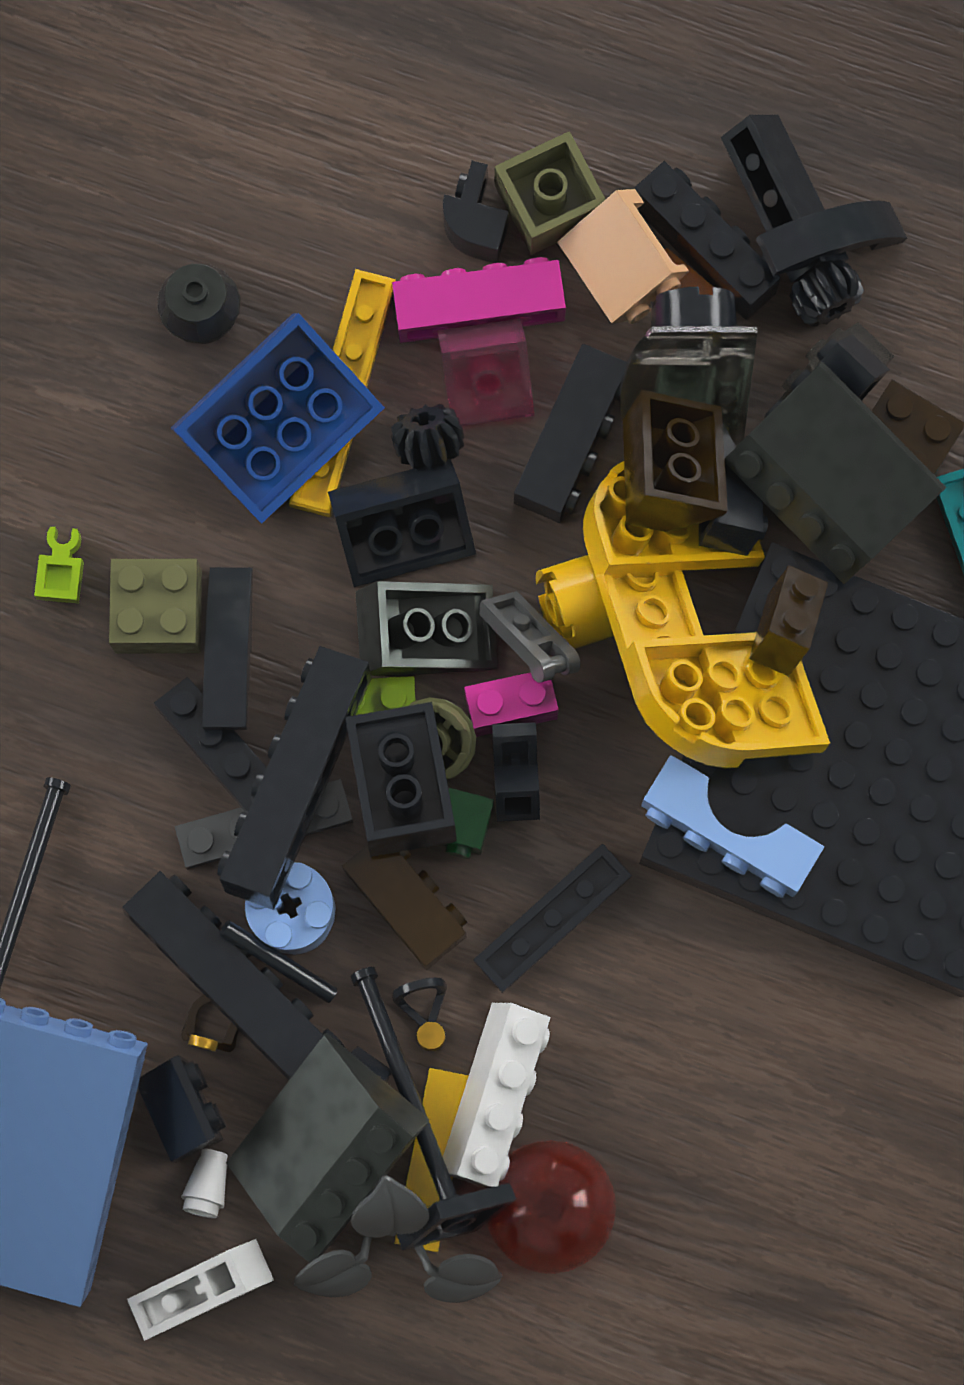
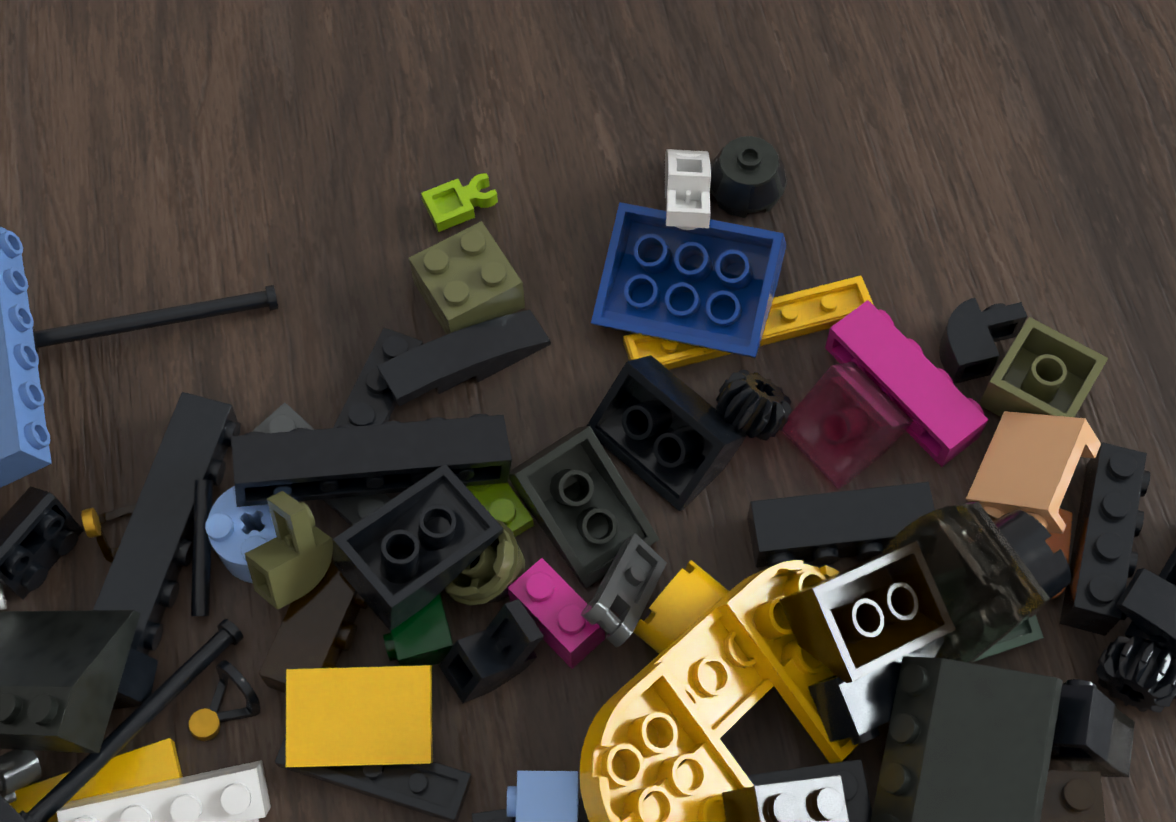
camera: 60 degrees right, 15 degrees down
(193, 360) = (687, 189): none -> white slope
(347, 885) = (294, 559): none -> olive brick
(510, 903) = (359, 716): none -> yellow tile

